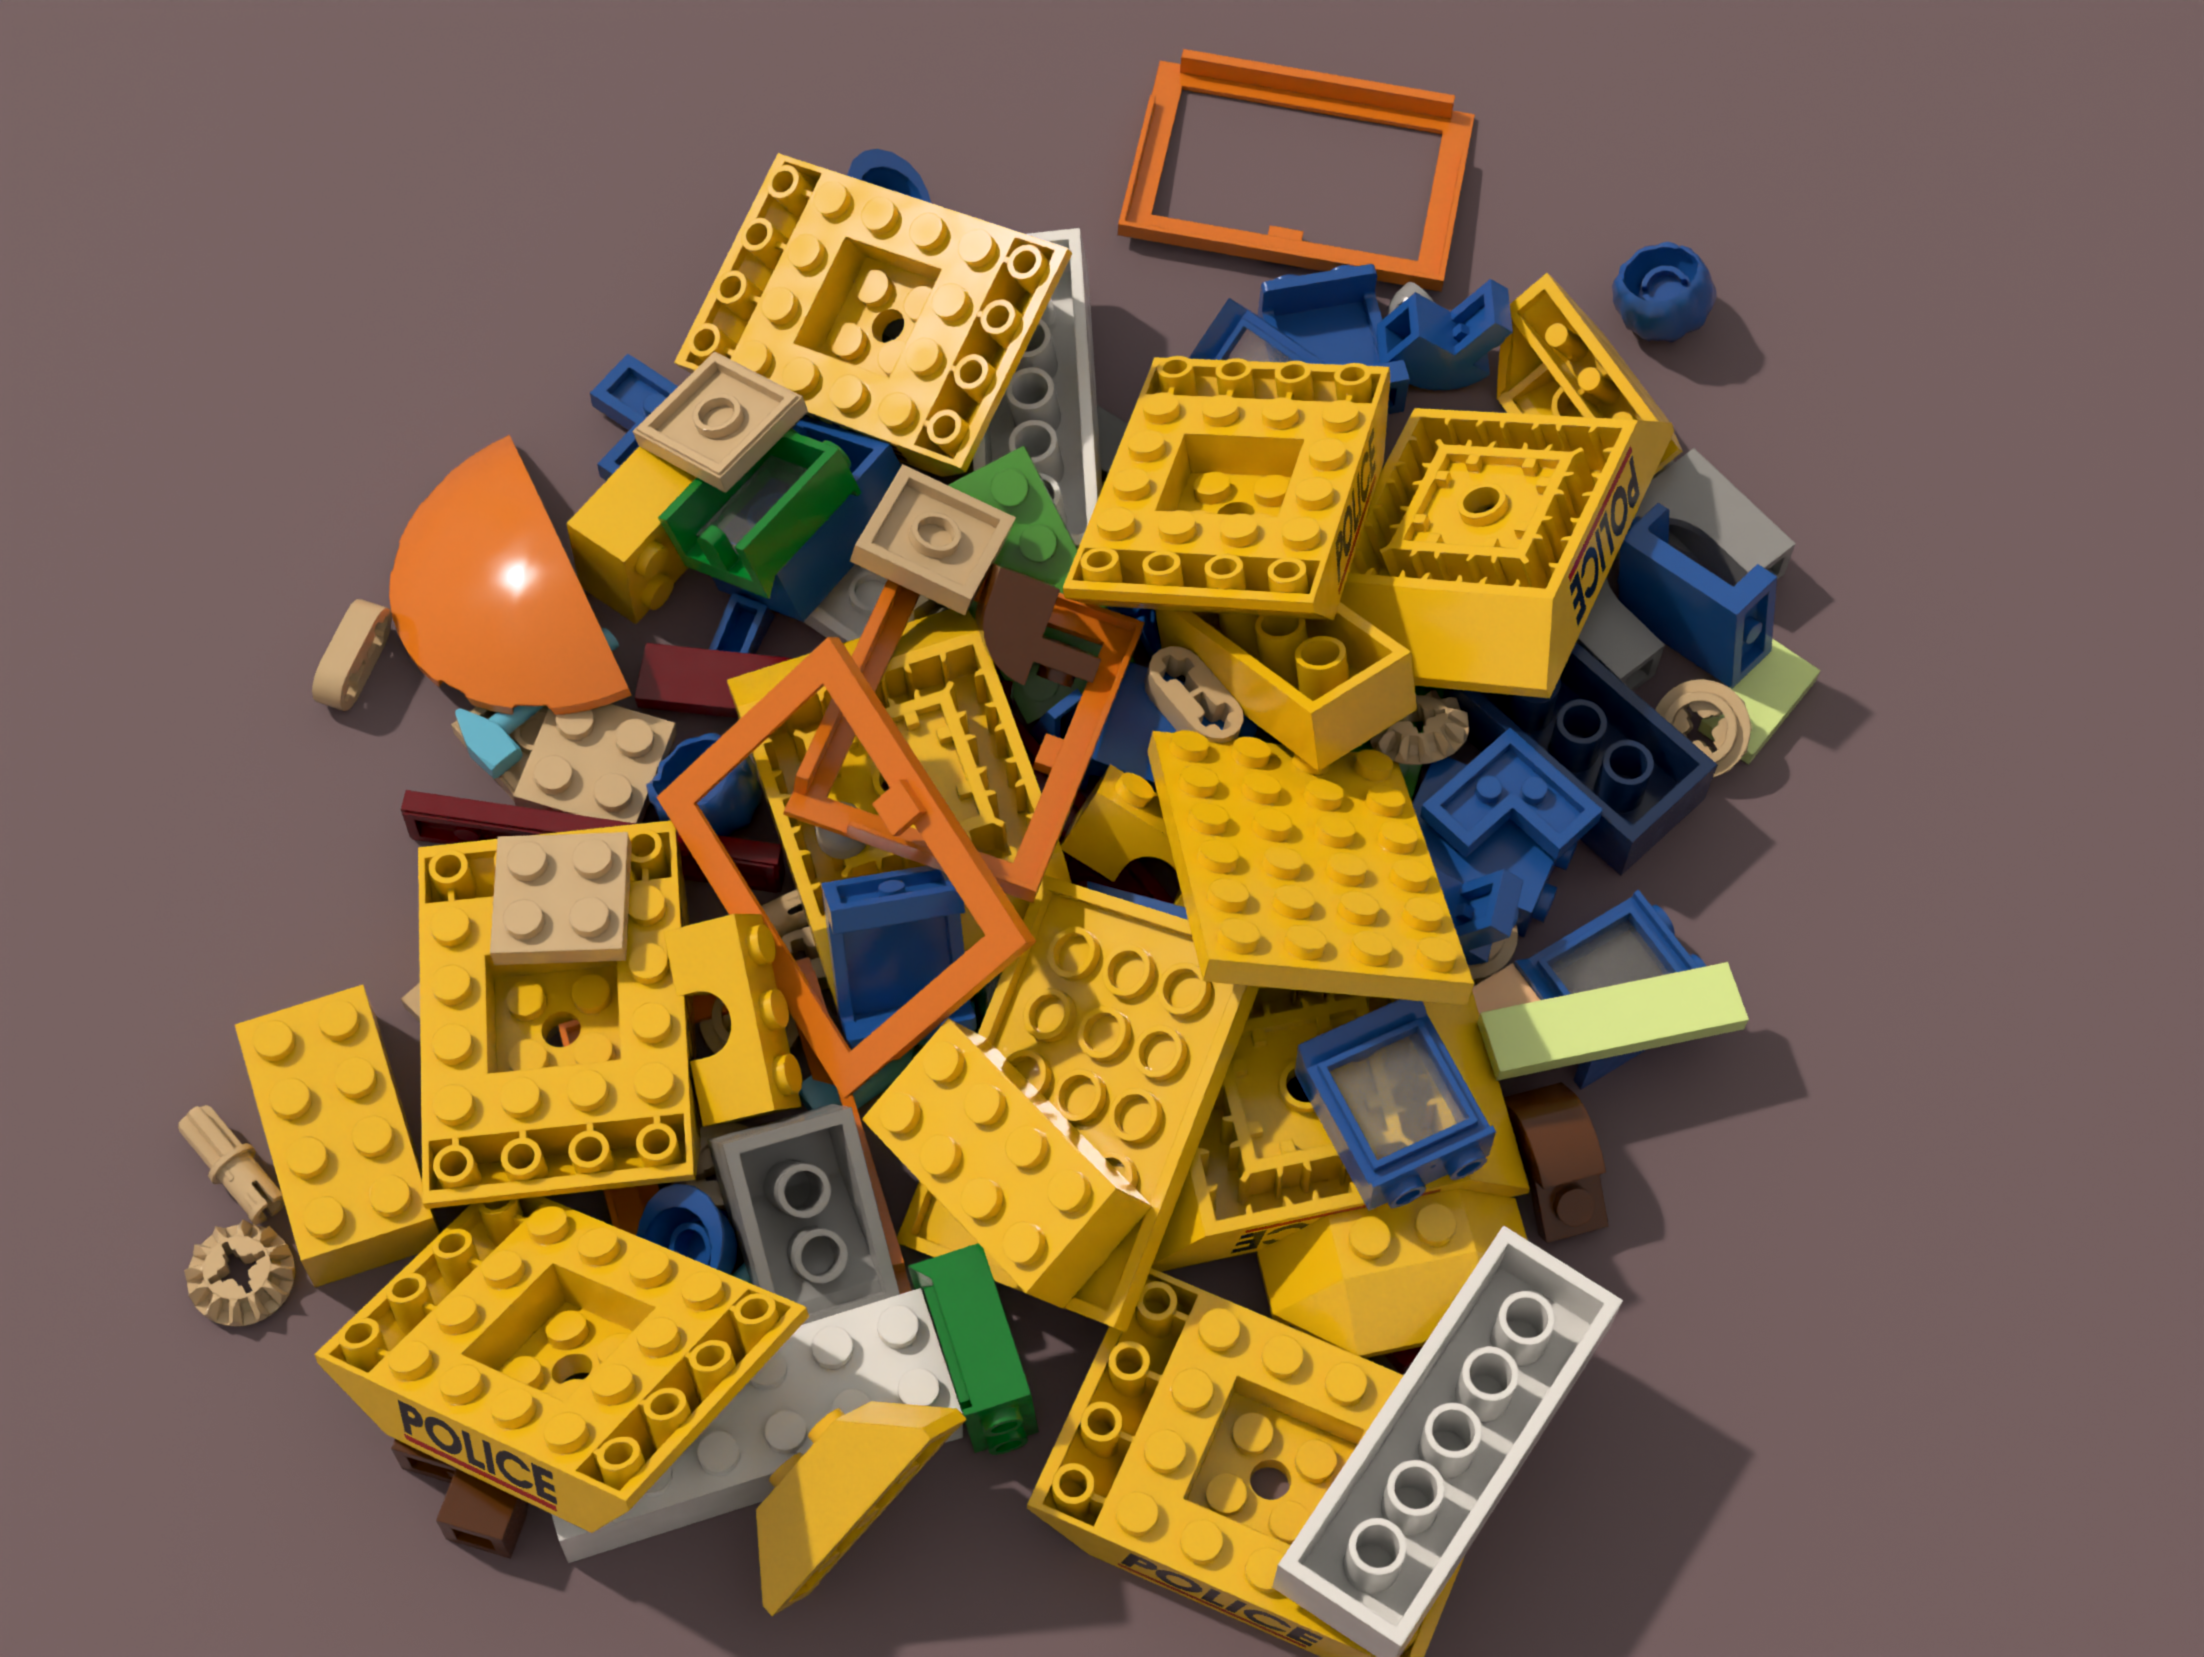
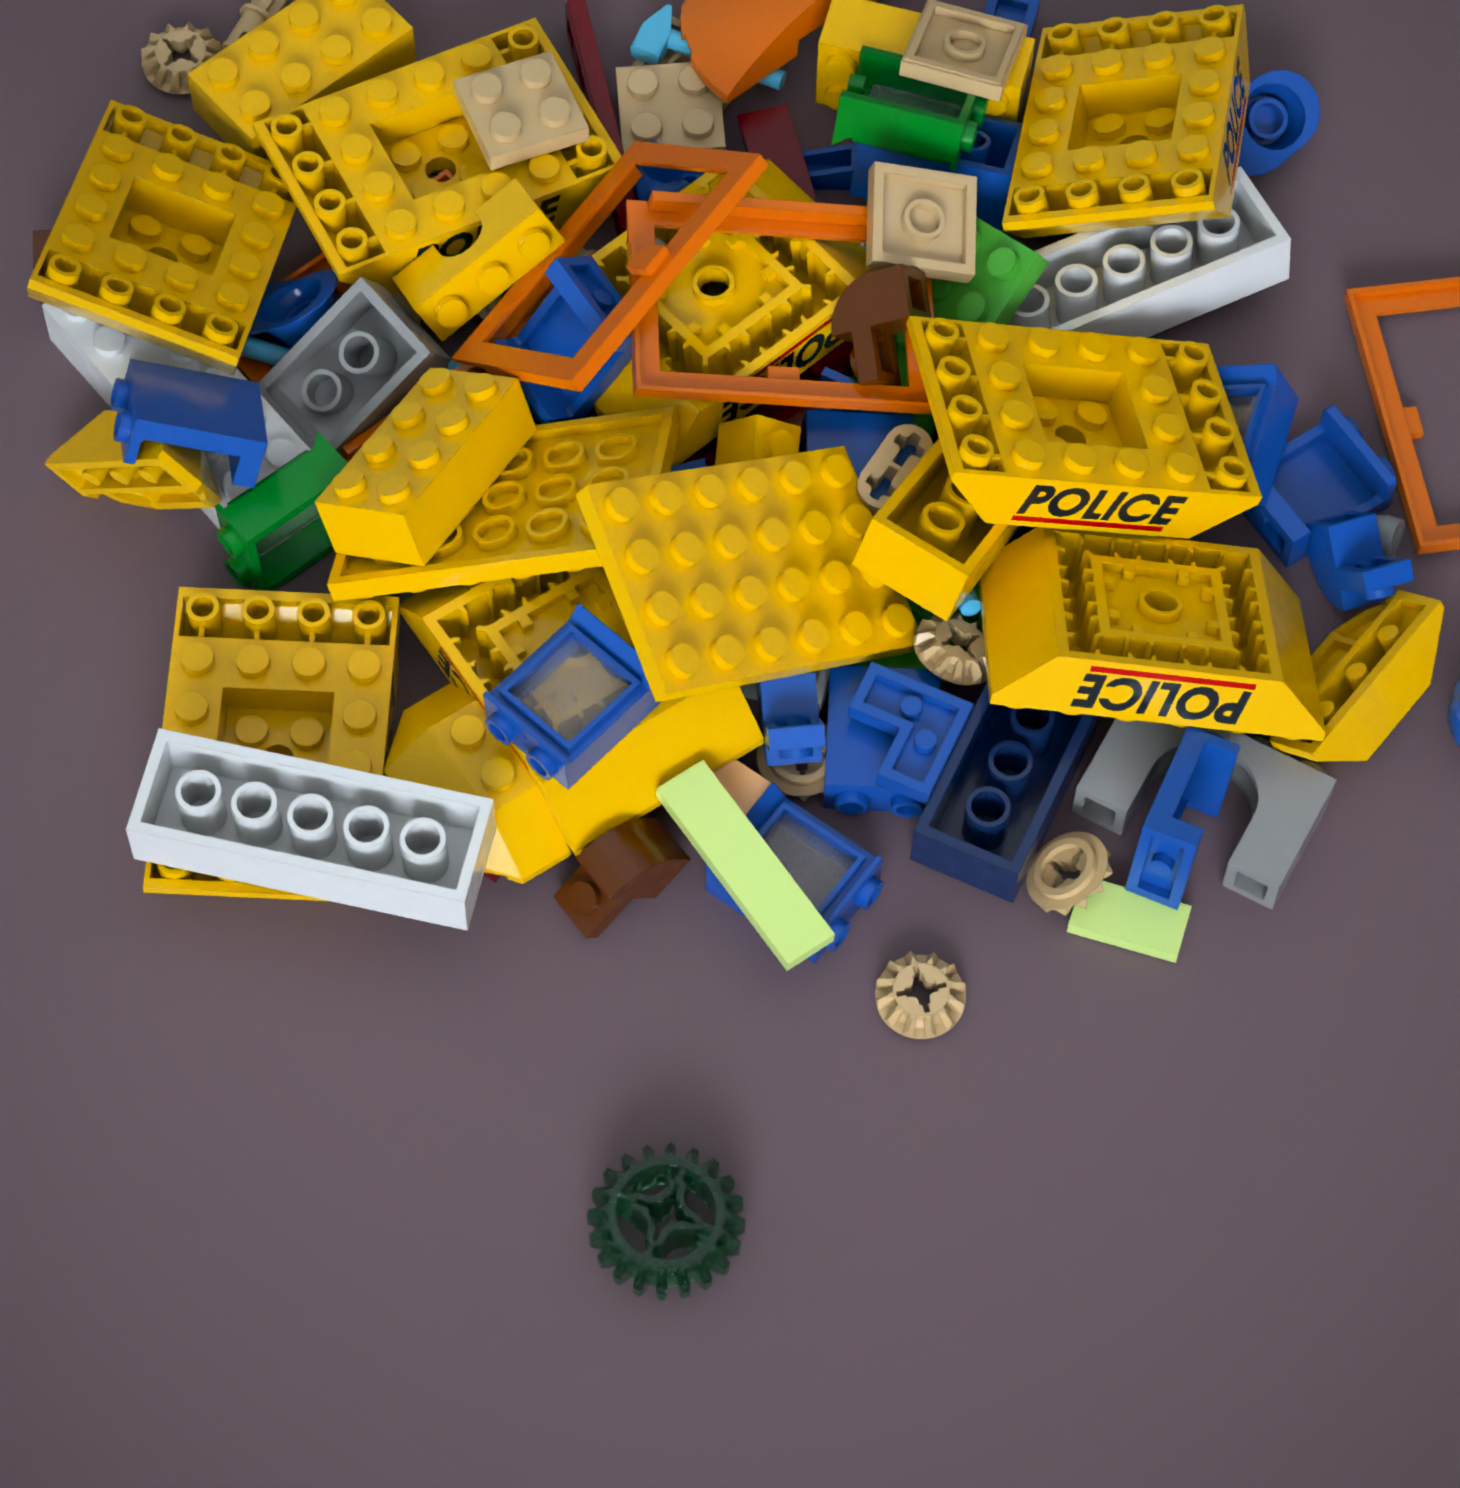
camera: 70 degrees right, 0 degrees up
(857, 1393) = (191, 412): none -> blue panel
(1760, 937) = (905, 1013): none -> tan gear
(2024, 1299) = (646, 1210): none -> clear green gear

